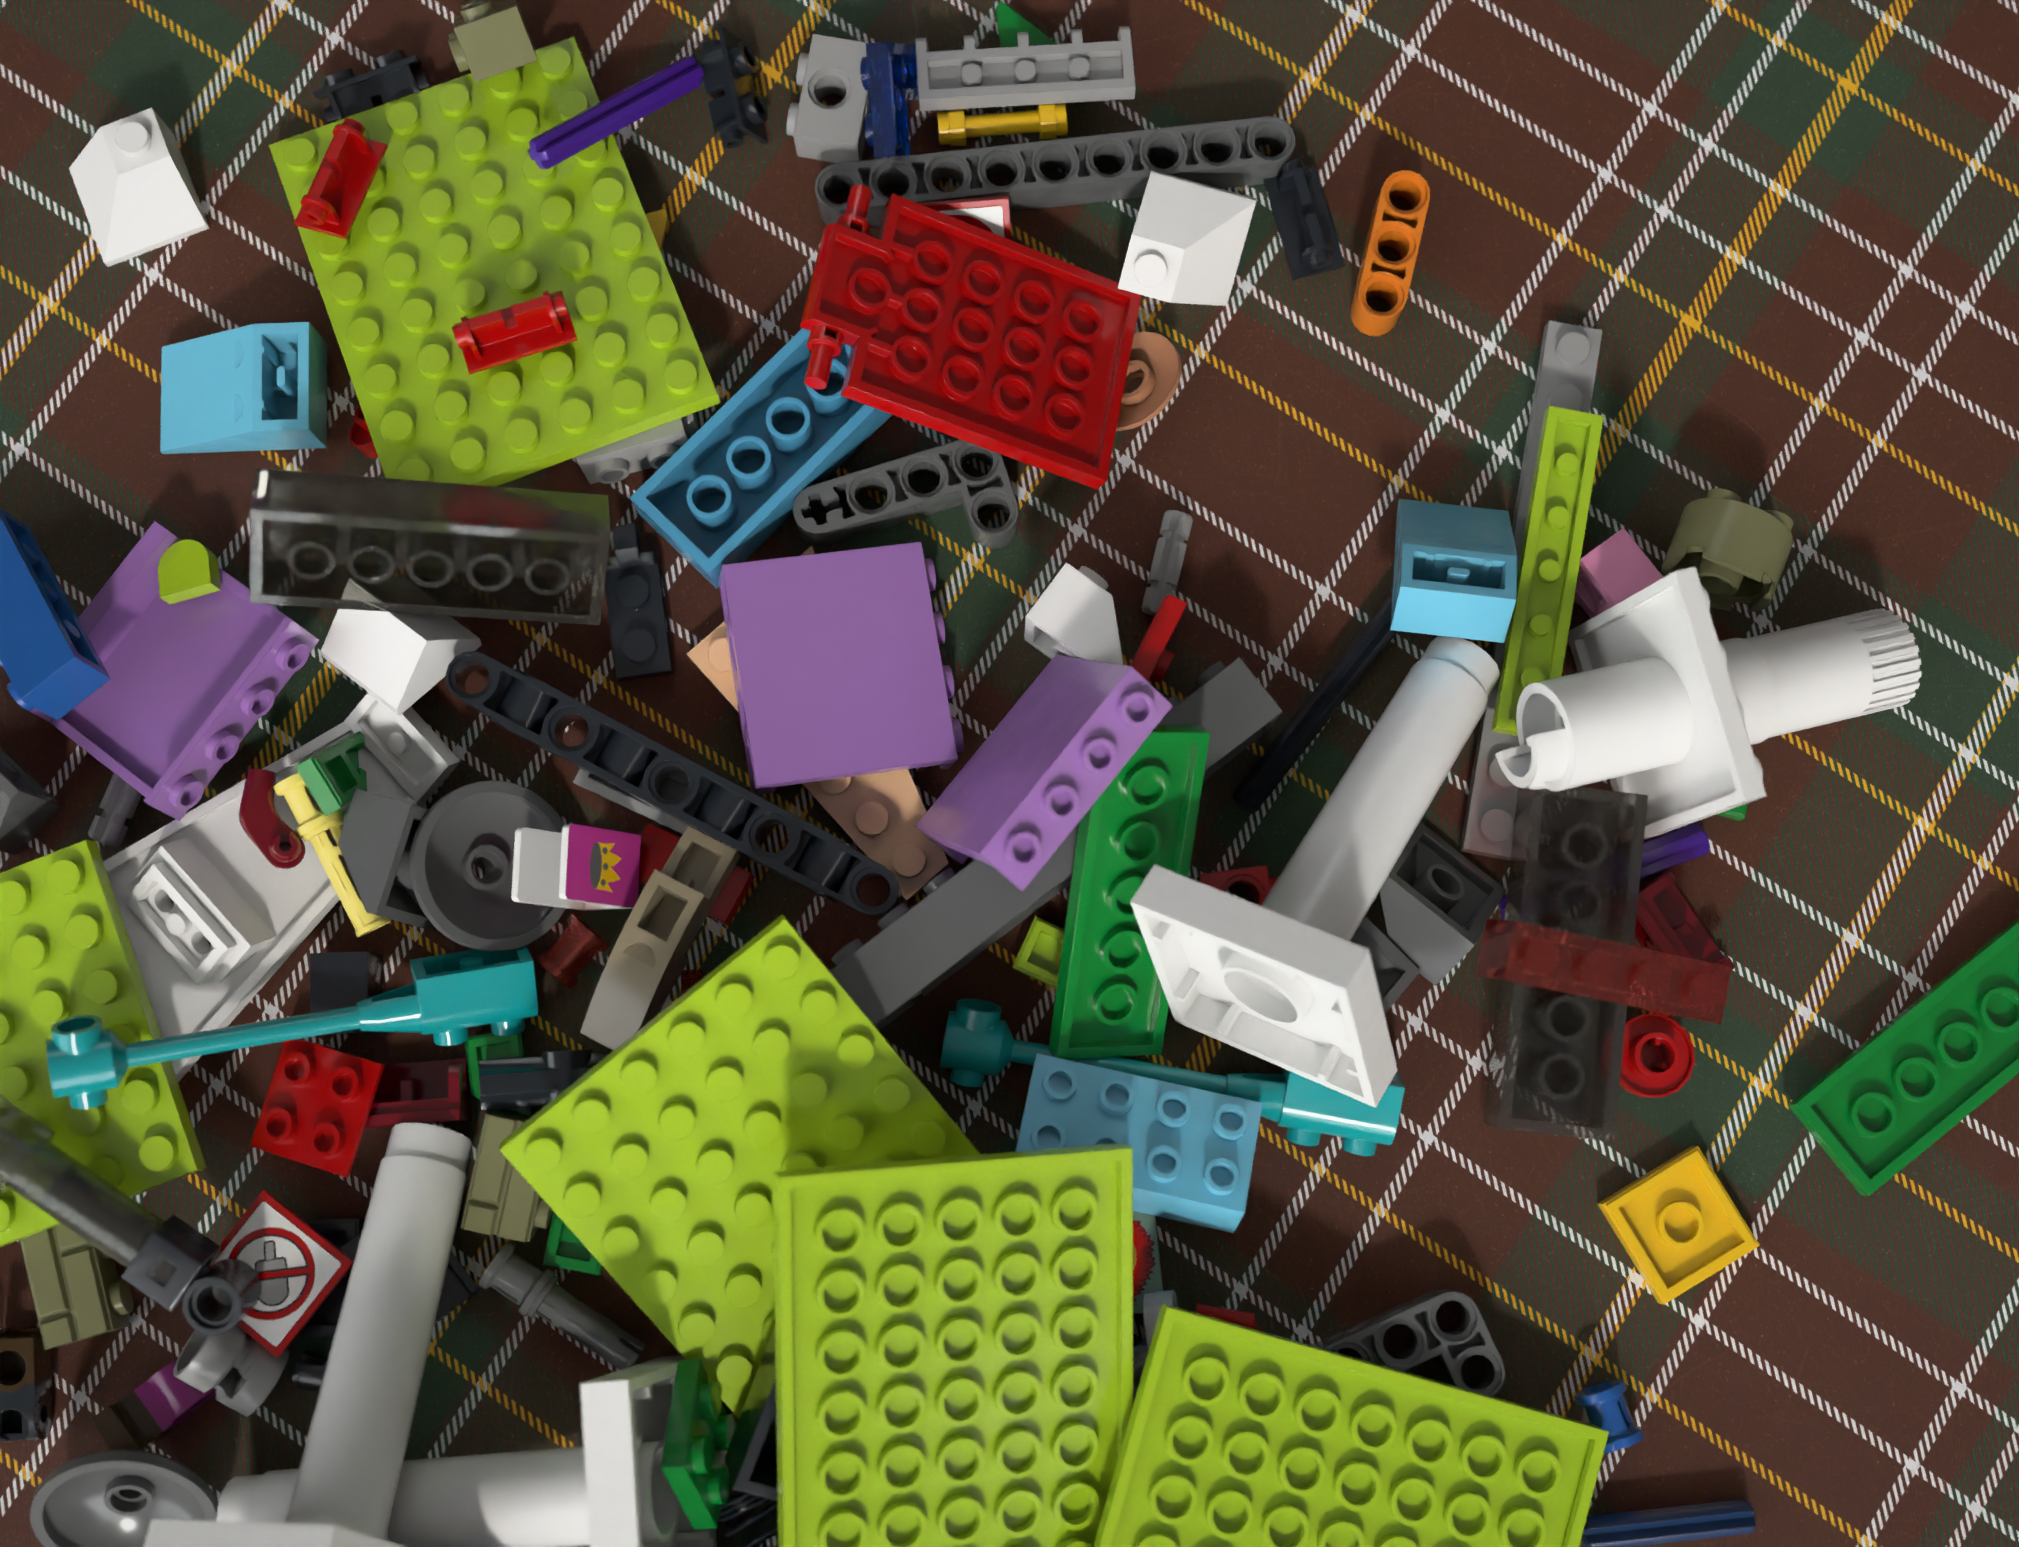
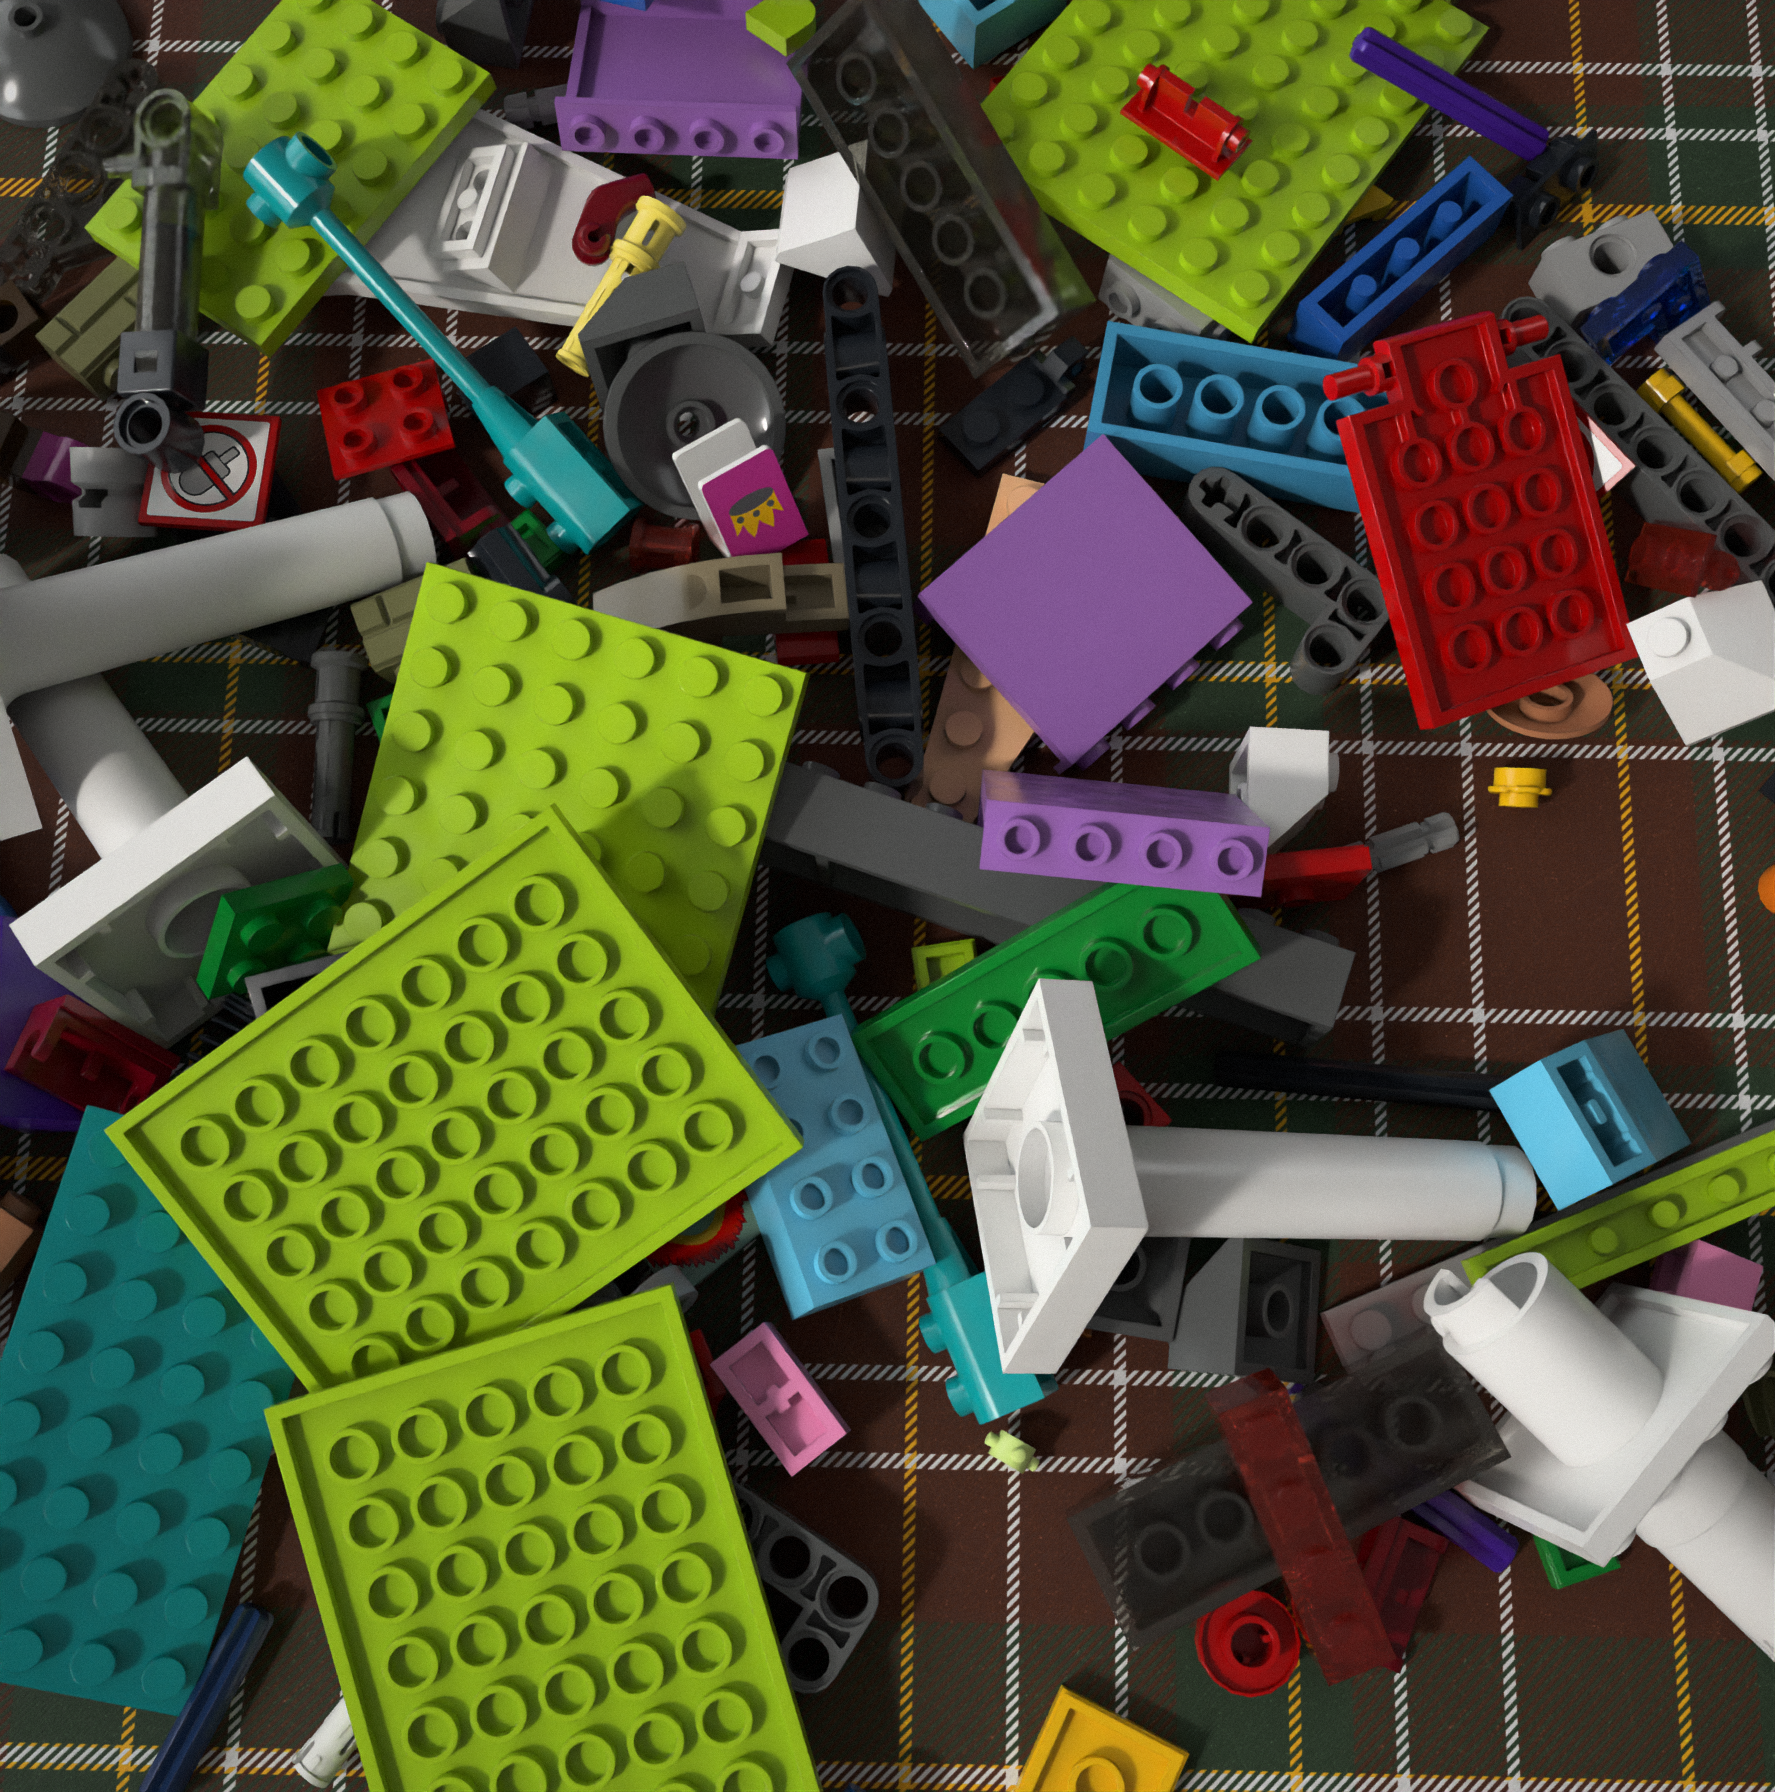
camera: 60 degrees right, 5 degrees down
(335, 774) = (687, 236): green tile -> none
(728, 247) = (1400, 264): none -> blue brick
(1097, 218) = (1679, 561): none -> clear red hinge
(1181, 445) = (1519, 786): none -> yellow plate
(1283, 1276) = (780, 1397): none -> bright pink hinge
(1420, 1134) = (1012, 1451): none -> yellowish green piece

